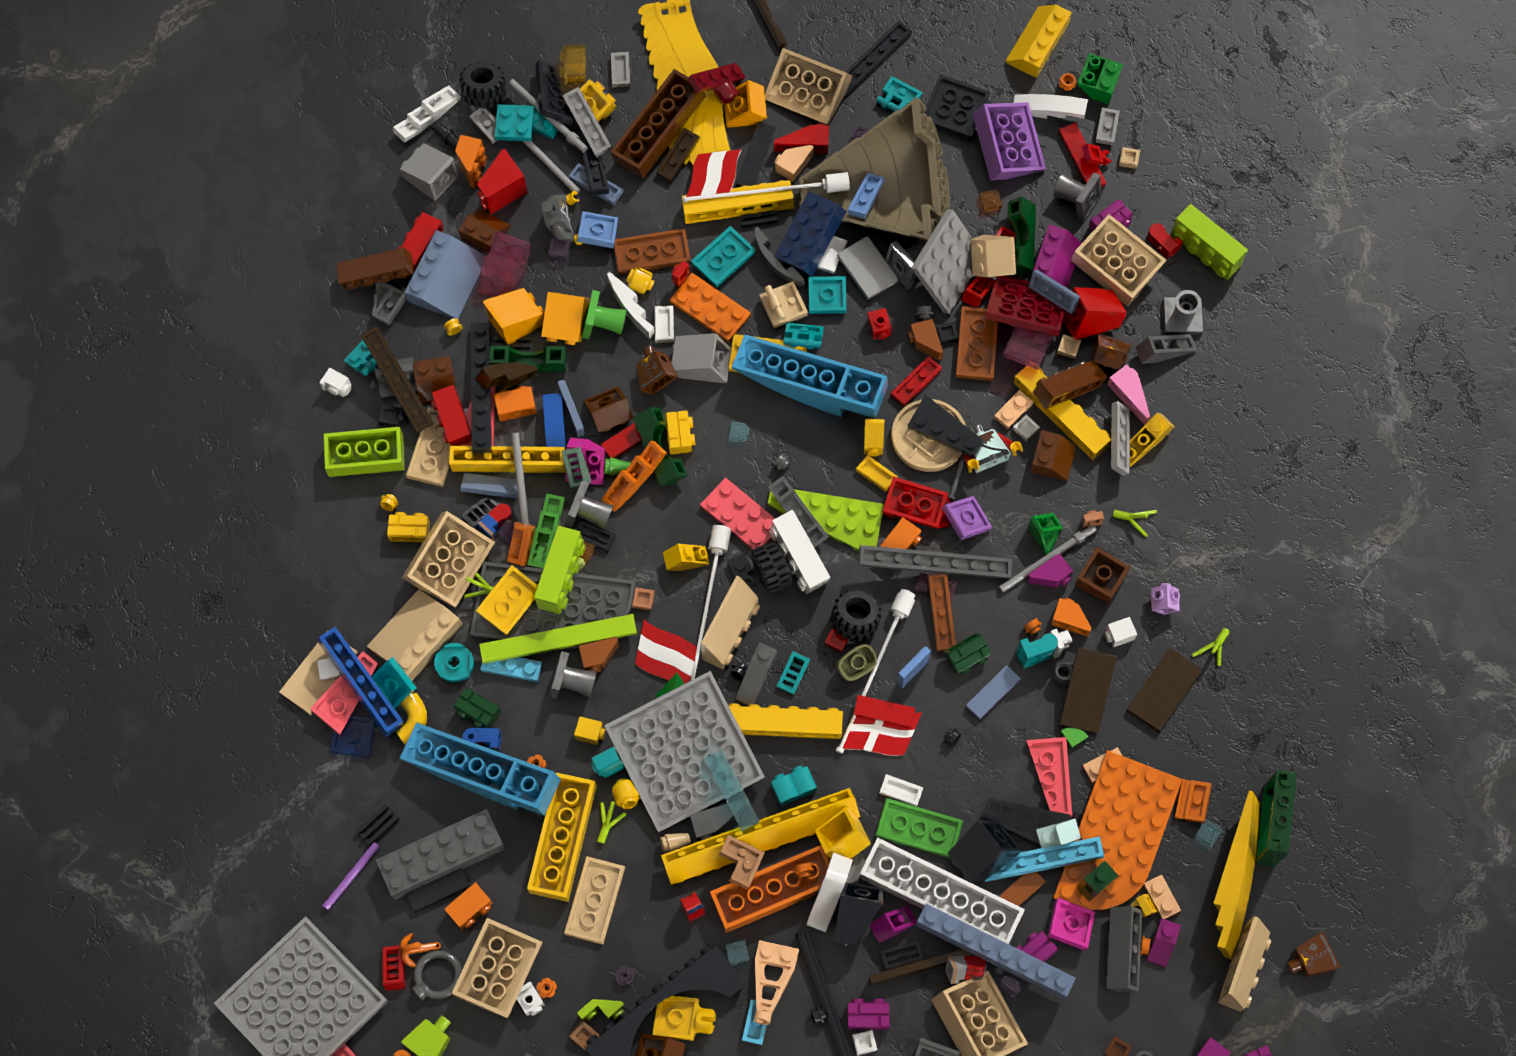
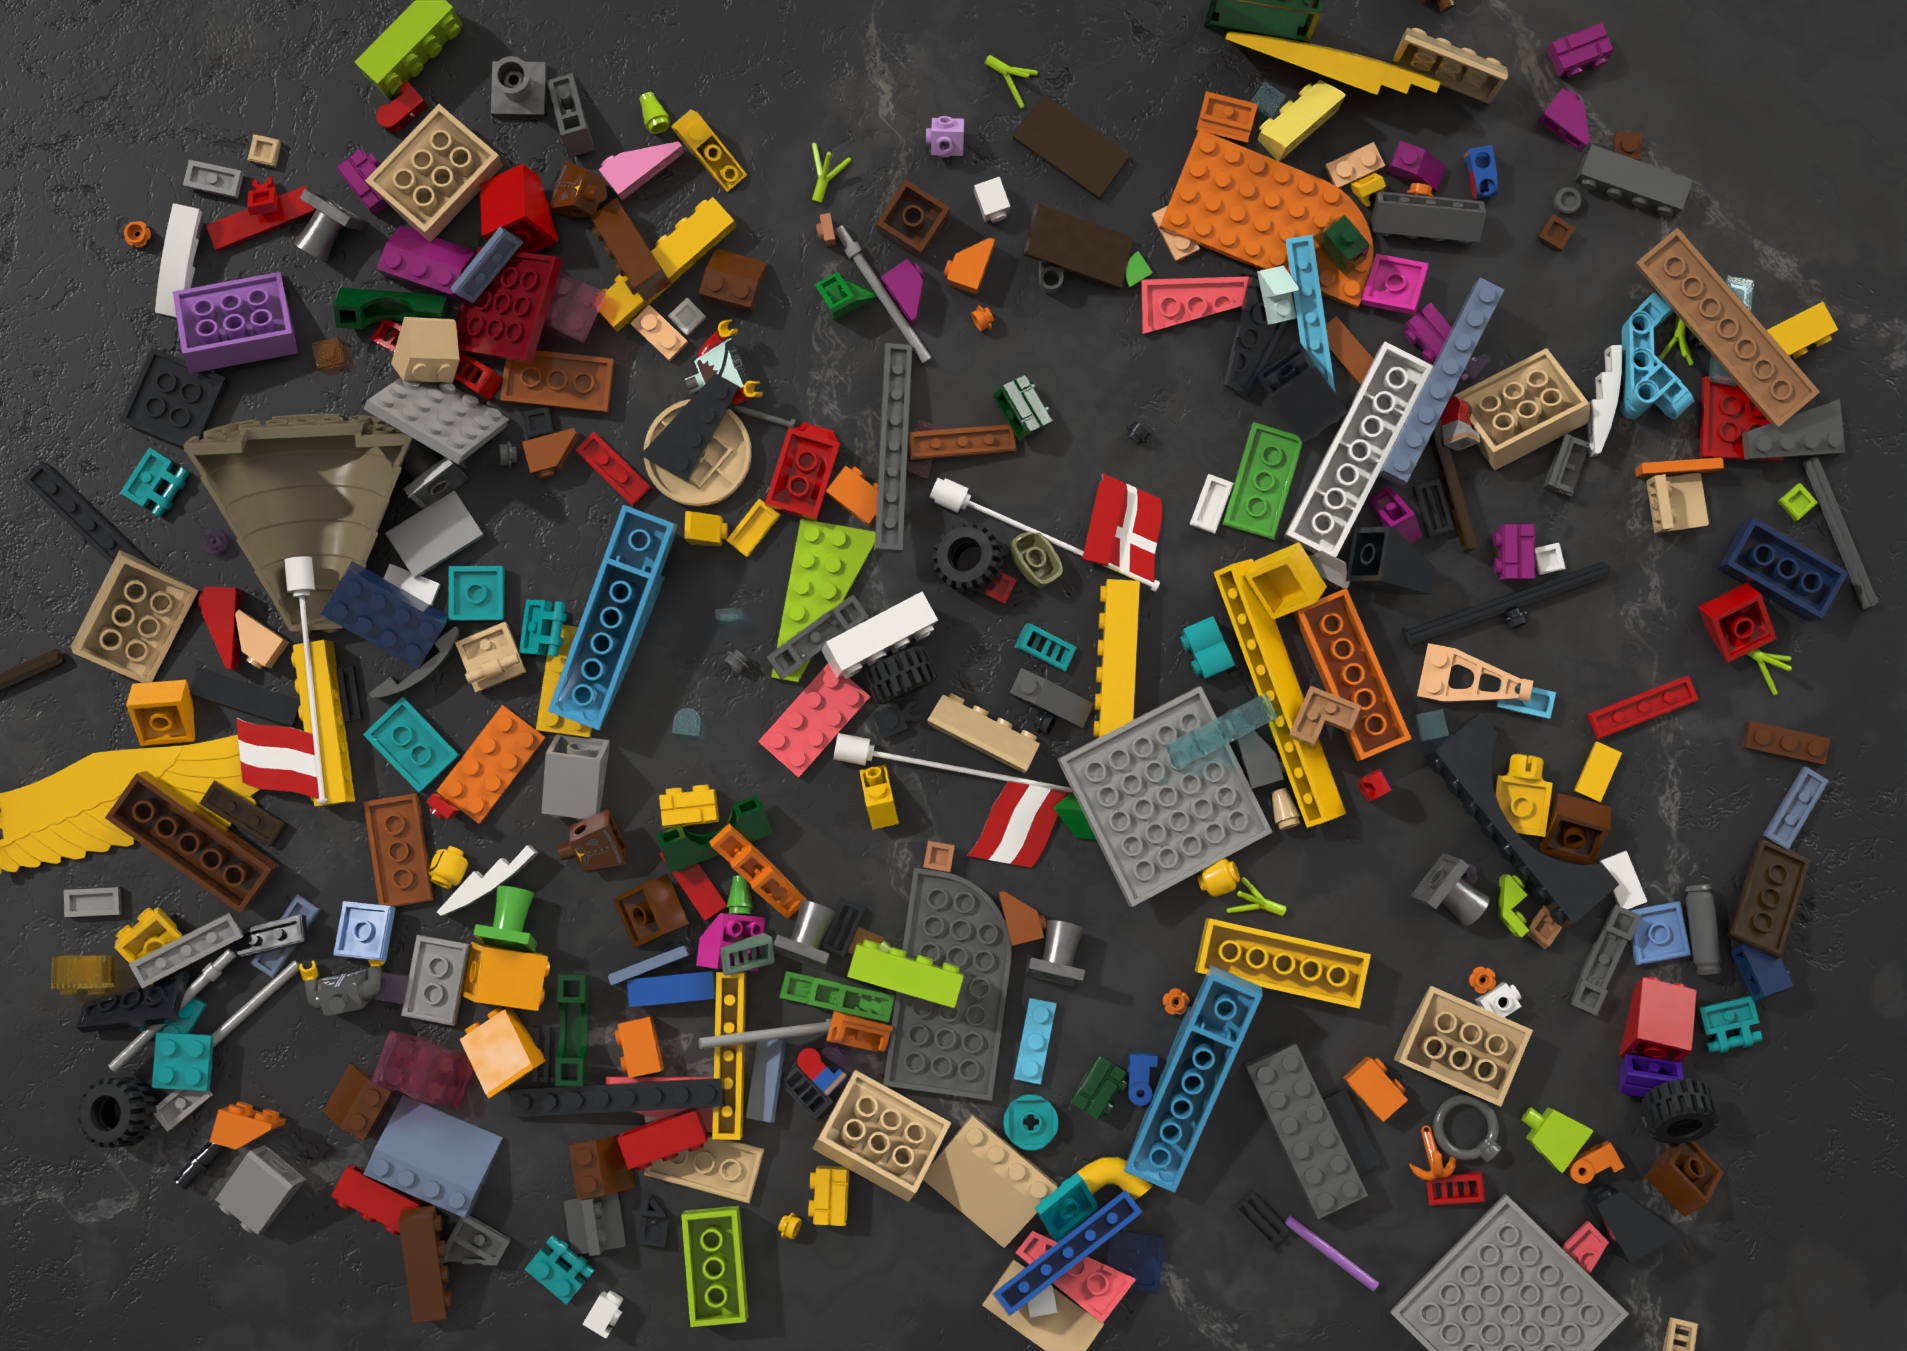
camera: 90 degrees left, 15 degrees up
(397, 379) = (606, 1222): dark brown tile -> none
(429, 111) = (160, 1197): white slope -> none
(453, 327) = (516, 1143): yellow bush -> none
(483, 584) = (927, 1079): lime plant -> none
(501, 183) = (286, 1078): red slope -> none
(505, 375) = (601, 1062): dark brown slope -> none
(508, 600) = (946, 1046): yellow plate -> none
(557, 639) = (1000, 975): lime tile -> none
(564, 276) = (436, 980): none -> light grey tile
(589, 731) = (1130, 928): yellow brick -> none
(594, 900) = (1363, 917): tan tile -> none
(607, 763) = (1182, 902): teal brick -> none
(611, 962) = (1445, 886): none -> flat silver plant
(664, 324) = (516, 831): white tile -> none
(719, 80) = (127, 750): dark red plate -> none
(804, 870) = (1334, 632): orange plate -> none
(814, 455) = (728, 614): none -> clear light blue tile
(829, 892) = (1363, 596): white beam -> none
(866, 195) = (323, 532): medium blue plate -> none
(879, 324) = (525, 518): red brick -> none
(913, 667) = (1045, 481): medium blue tile -> none
(967, 517) = (824, 402): medium lavender tile -> none
(993, 692) = (1074, 376): sand blue tile -> none
(1039, 39) = (63, 273): yellow slope -> none
(1042, 649) = (1018, 304): teal hips -> none
(1068, 347) = (567, 250): tan plate -> none
(1099, 78) = (134, 184): green slope -> none
(1120, 438) = (709, 184): light grey plate -> none
(1162, 992) = (1482, 171): none -> blue leg
(1170, 402) = (654, 115): none -> lime cone
(1193, 853) = (1300, 118): none -> light yellow slope

